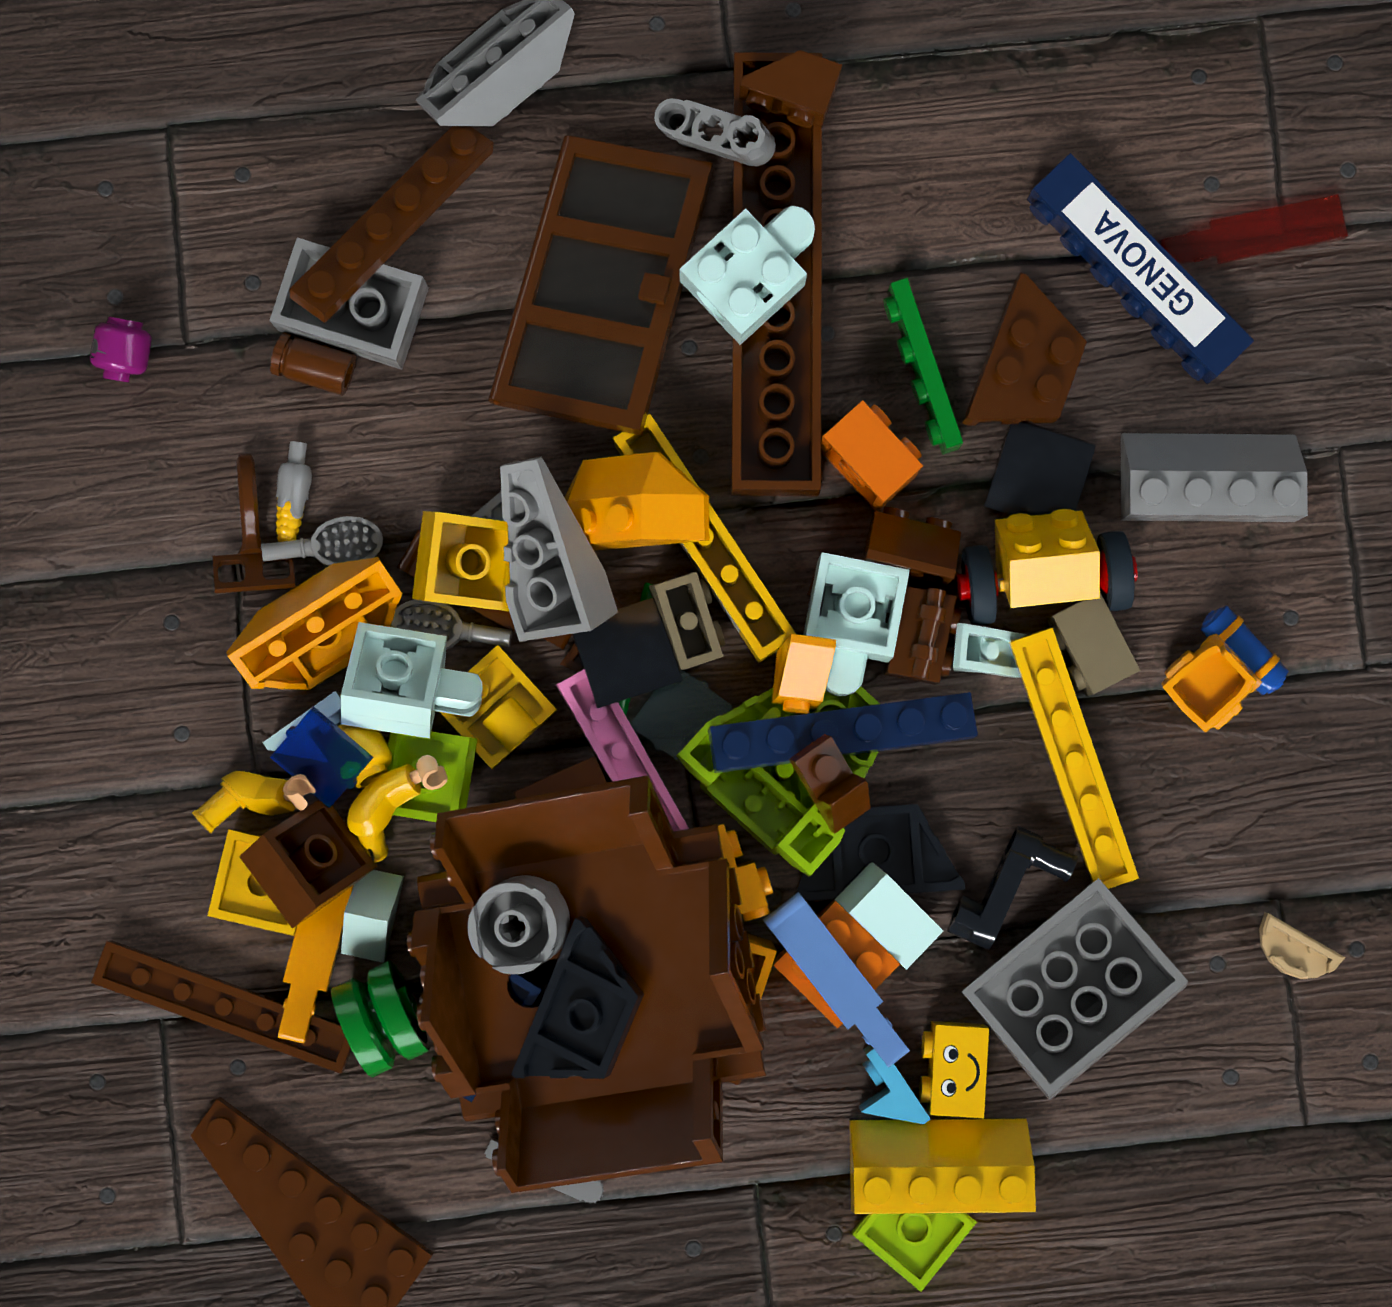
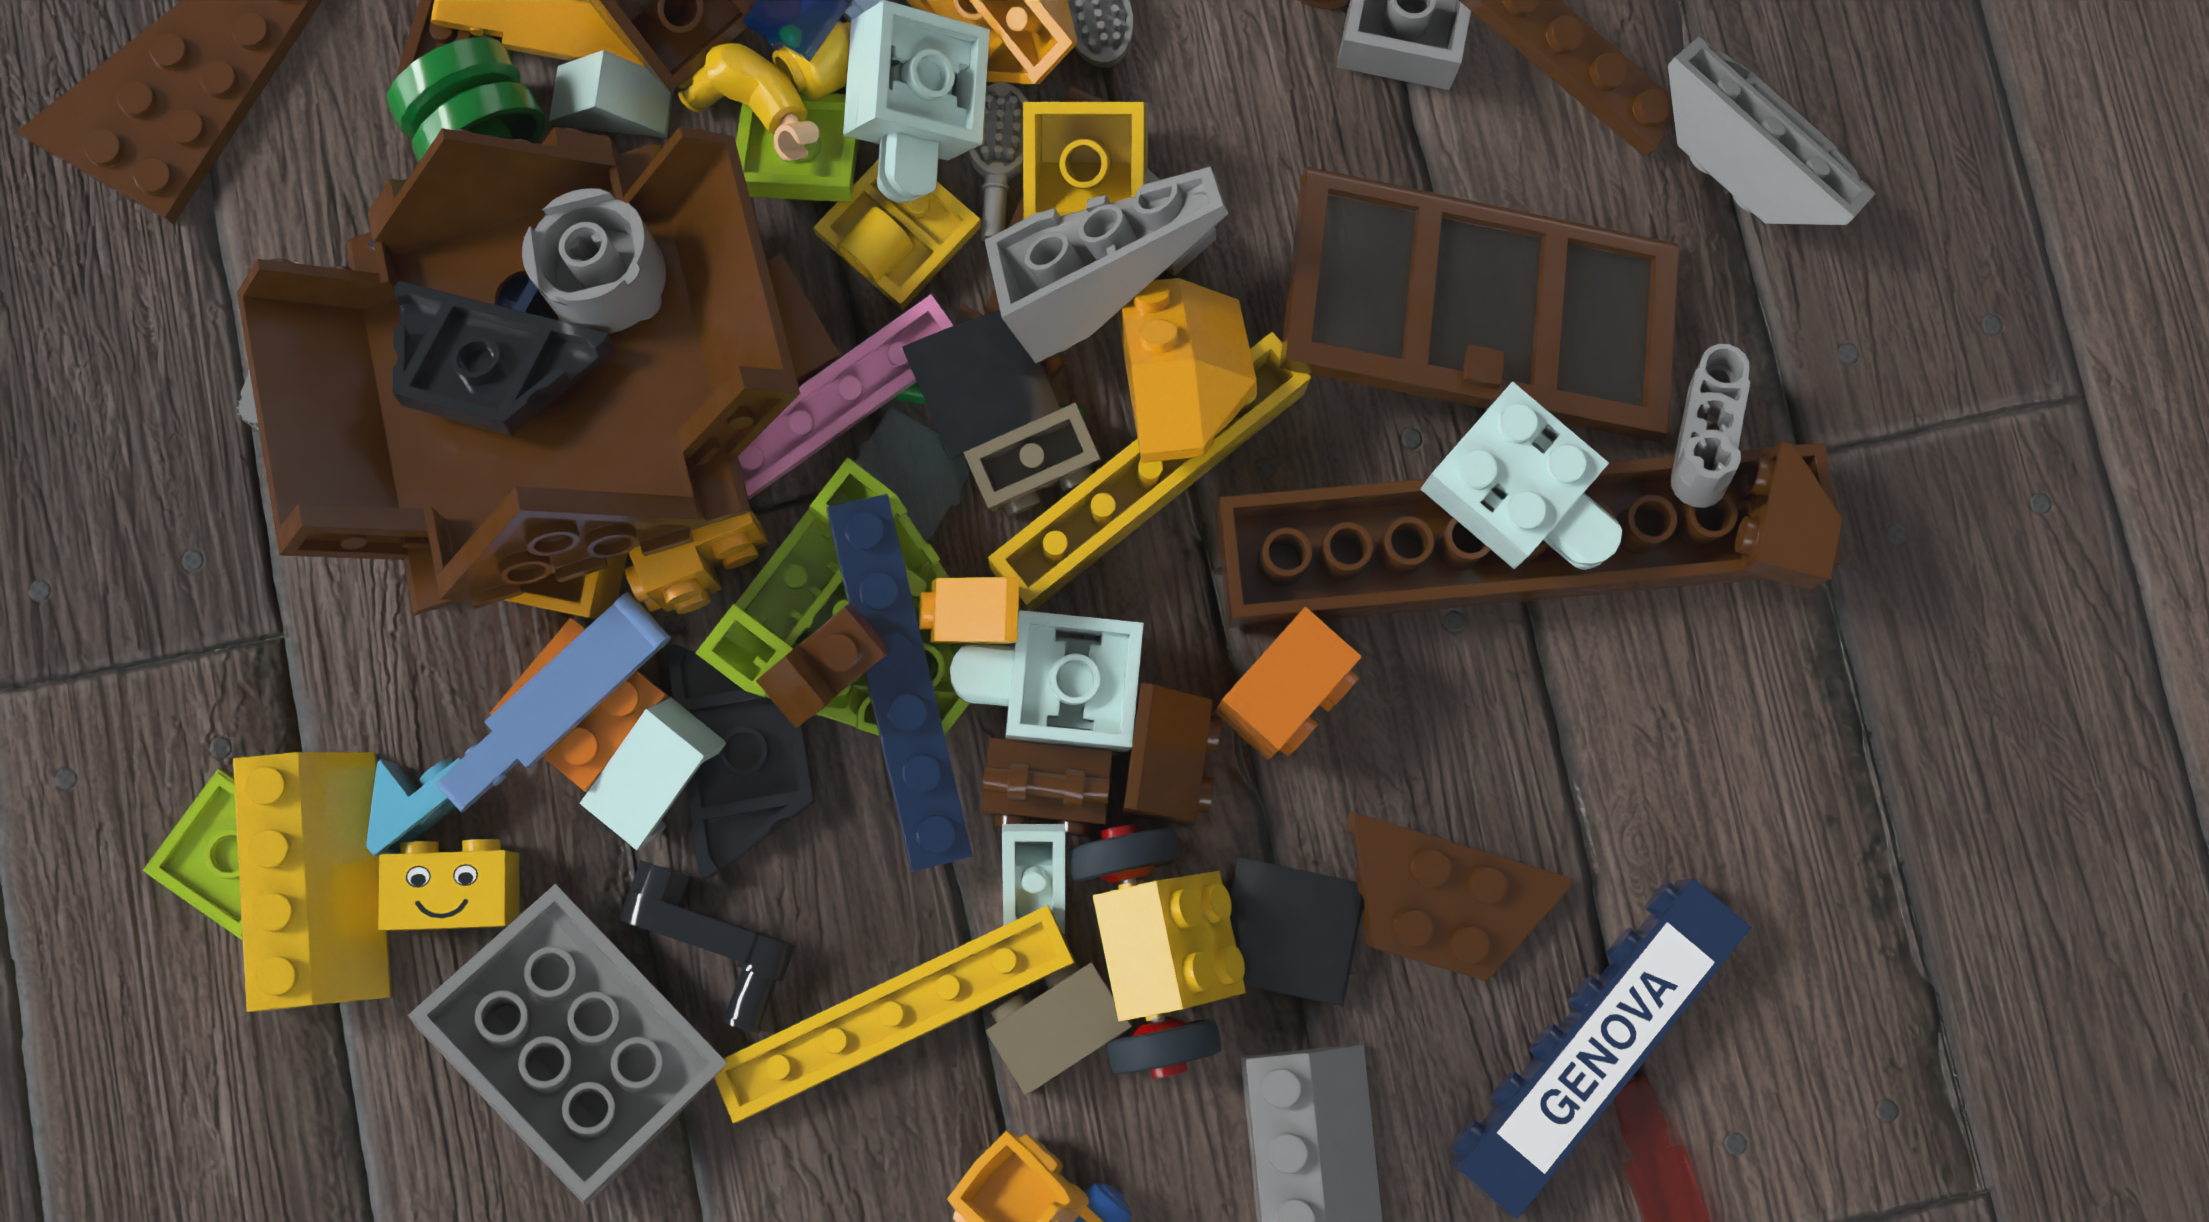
camera: 80 degrees right, 5 degrees down
(916, 349) = (1444, 740): green plate -> none

